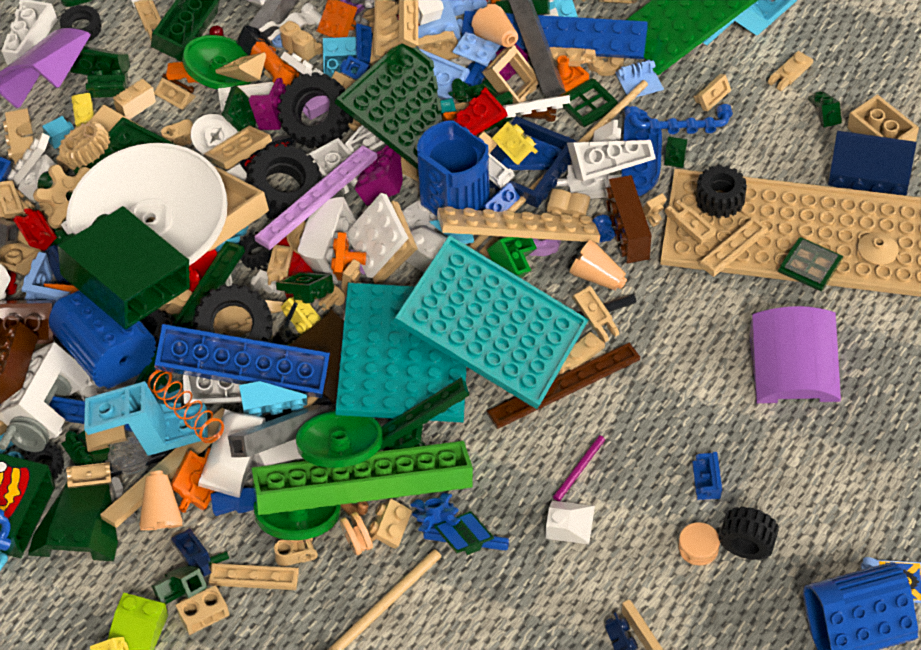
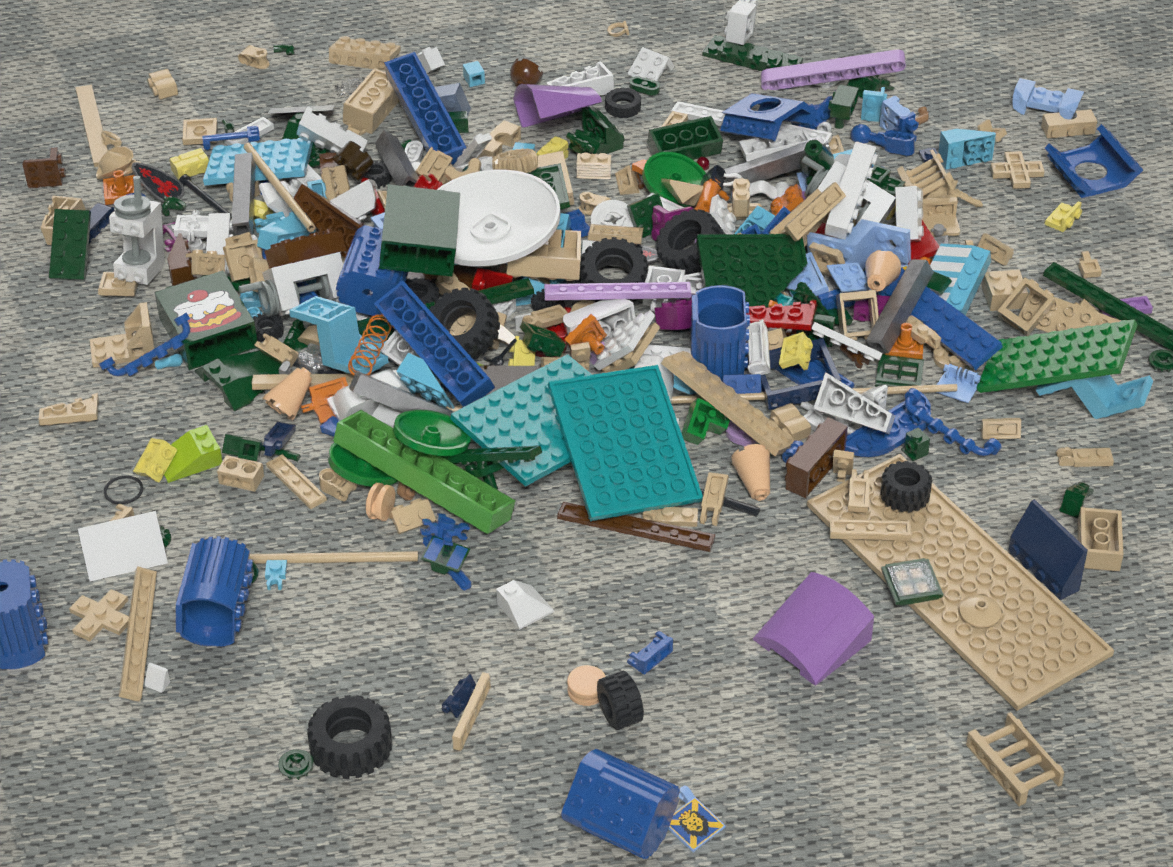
camera: 45 degrees right, 10 degrees down
(579, 468) = (575, 581): magenta bar -> none

